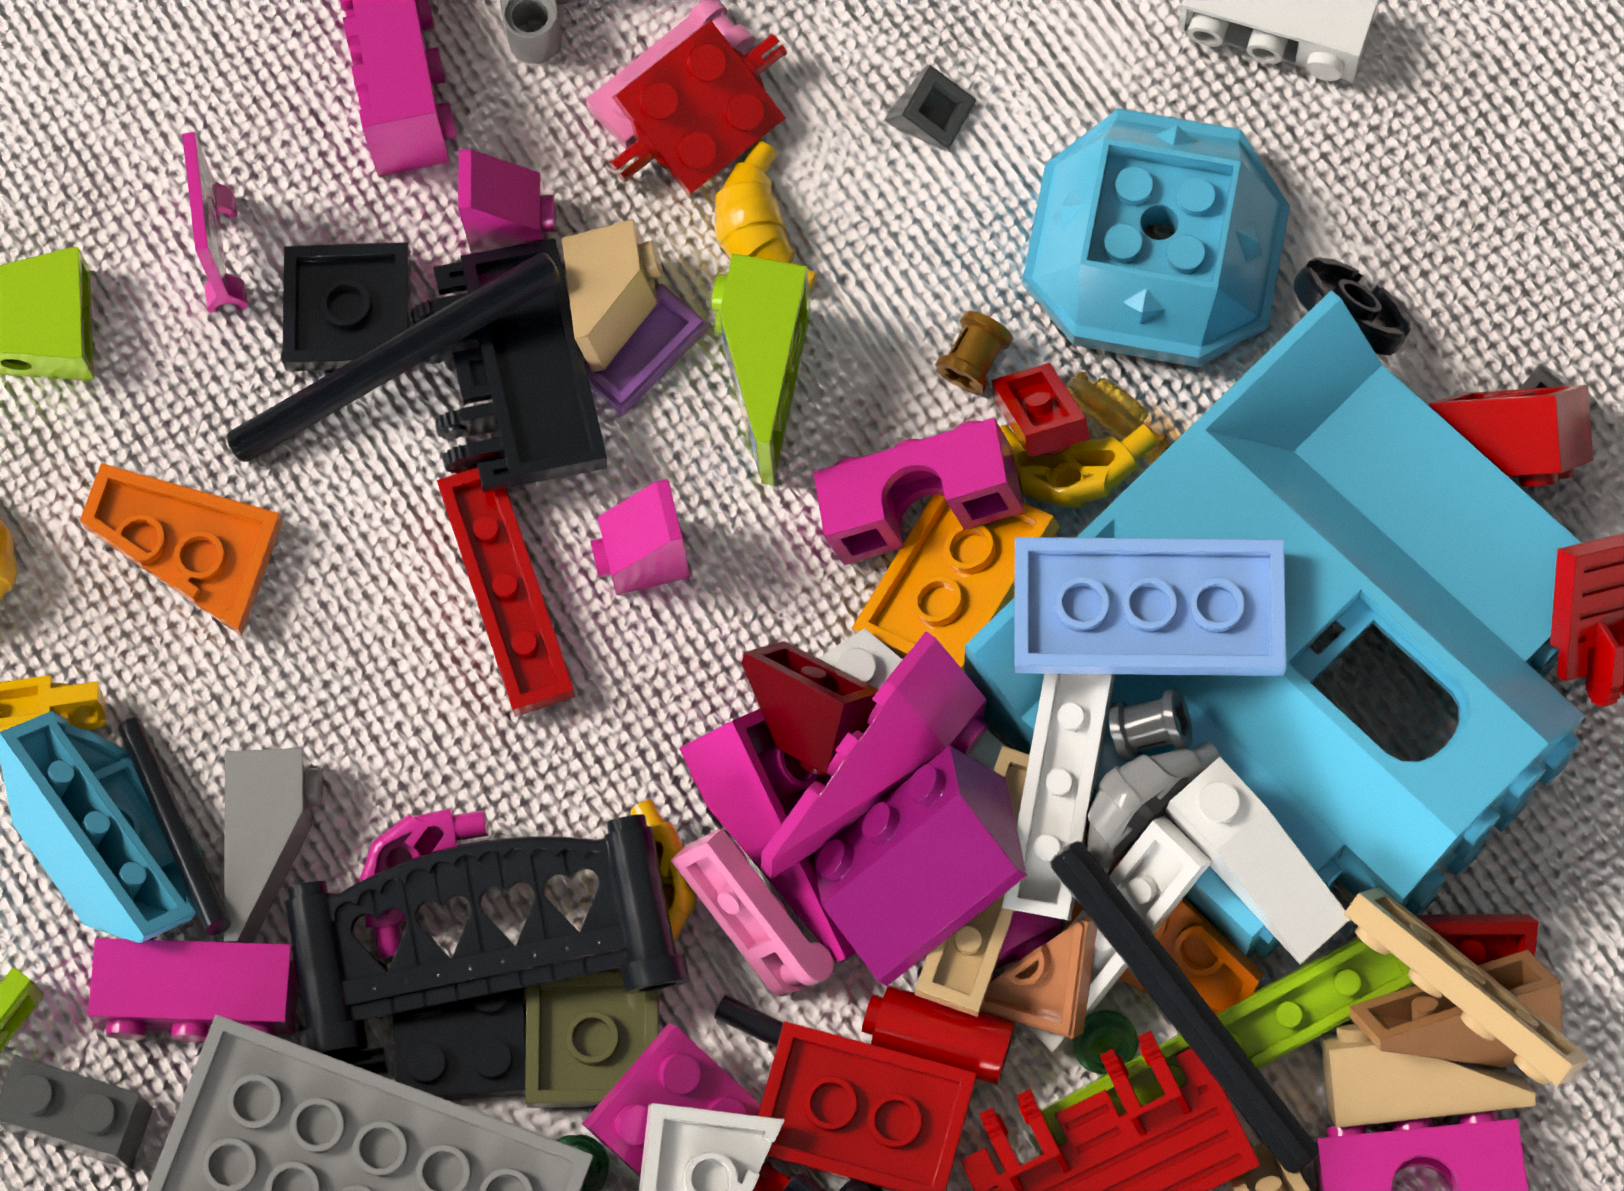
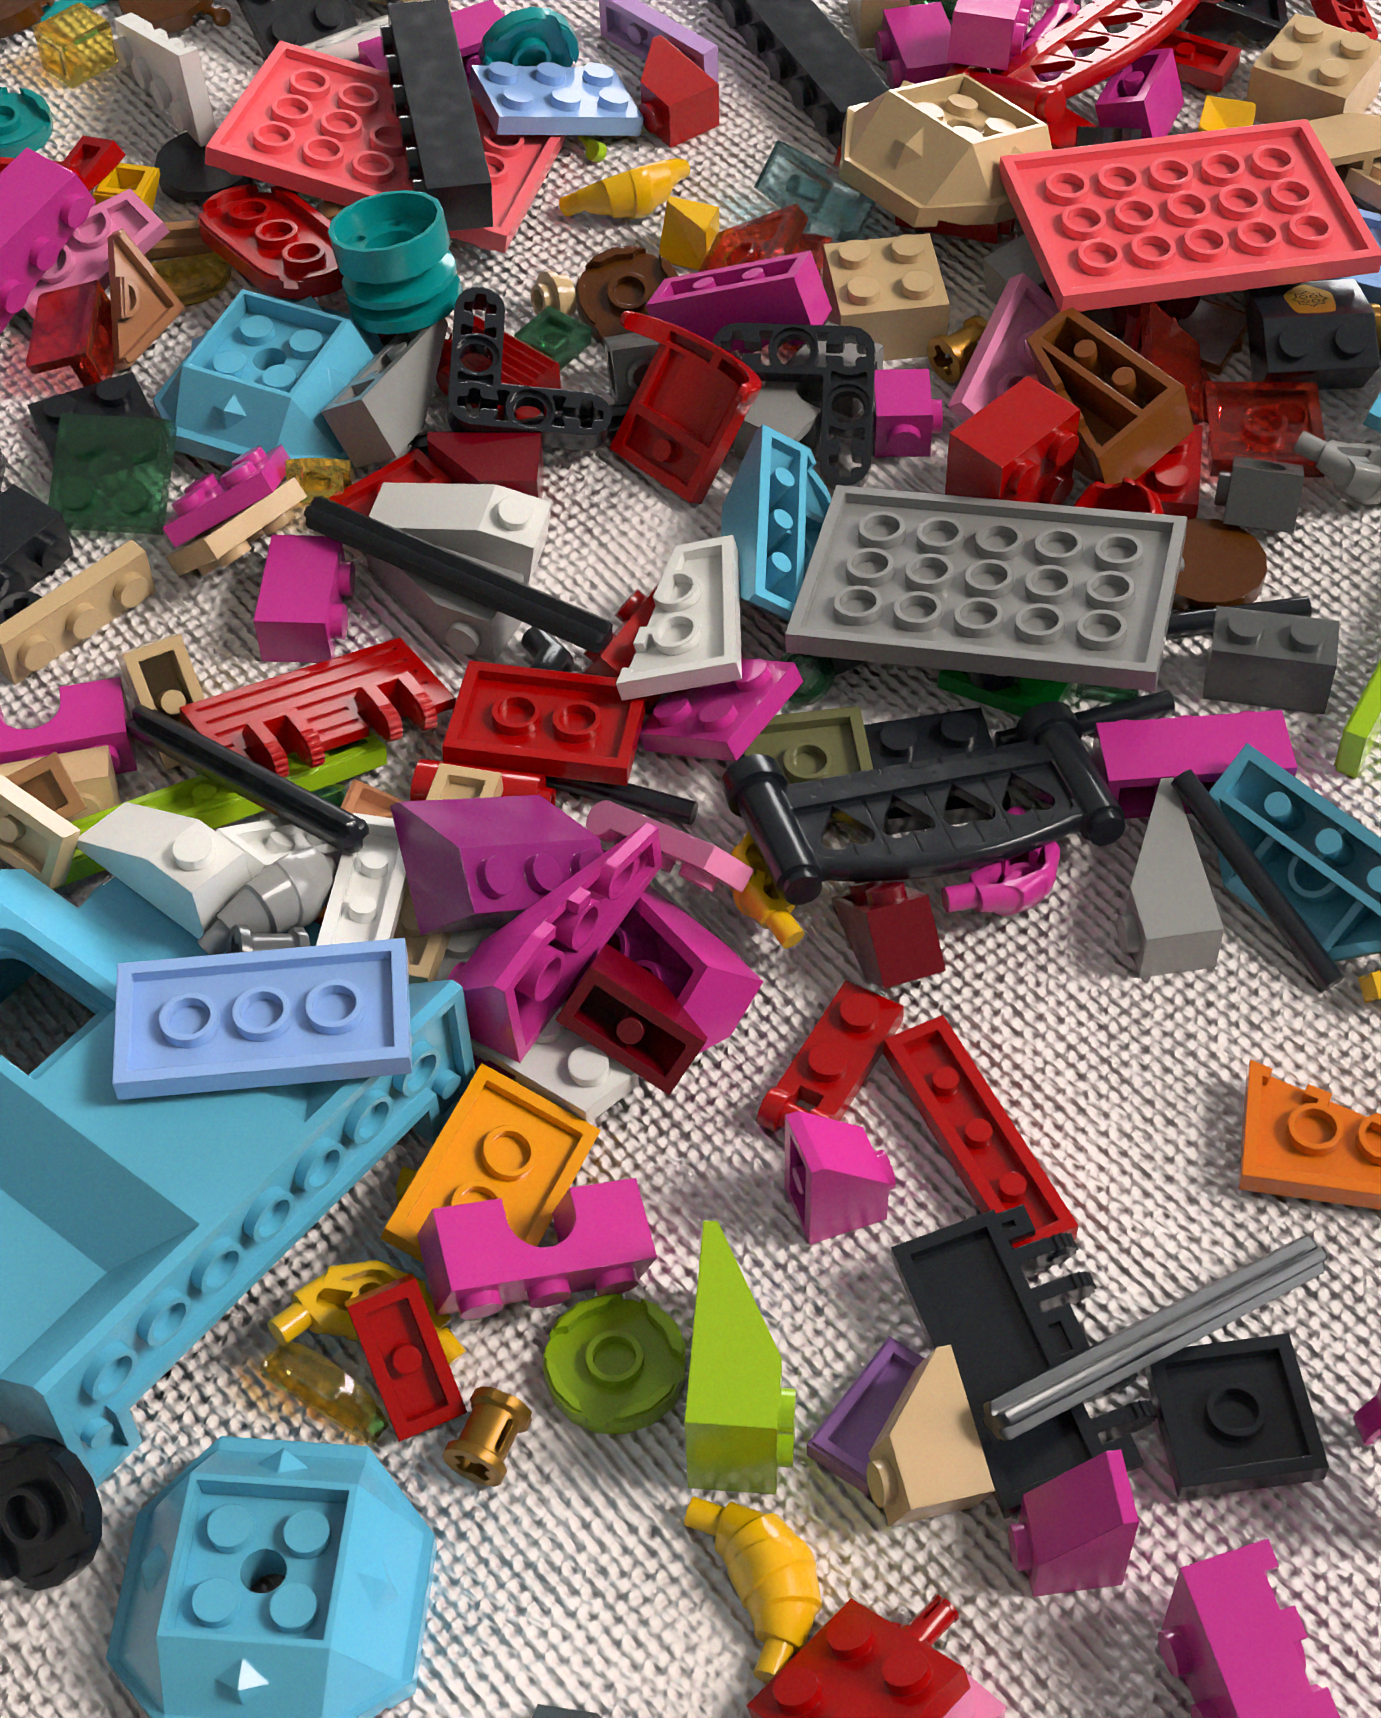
camera: 170 degrees right, 20 degrees down
(545, 802) = (890, 931): none -> dark red slope
(625, 689) = (834, 1057): none -> red plate
(858, 411) = (614, 1364): none -> lime tile

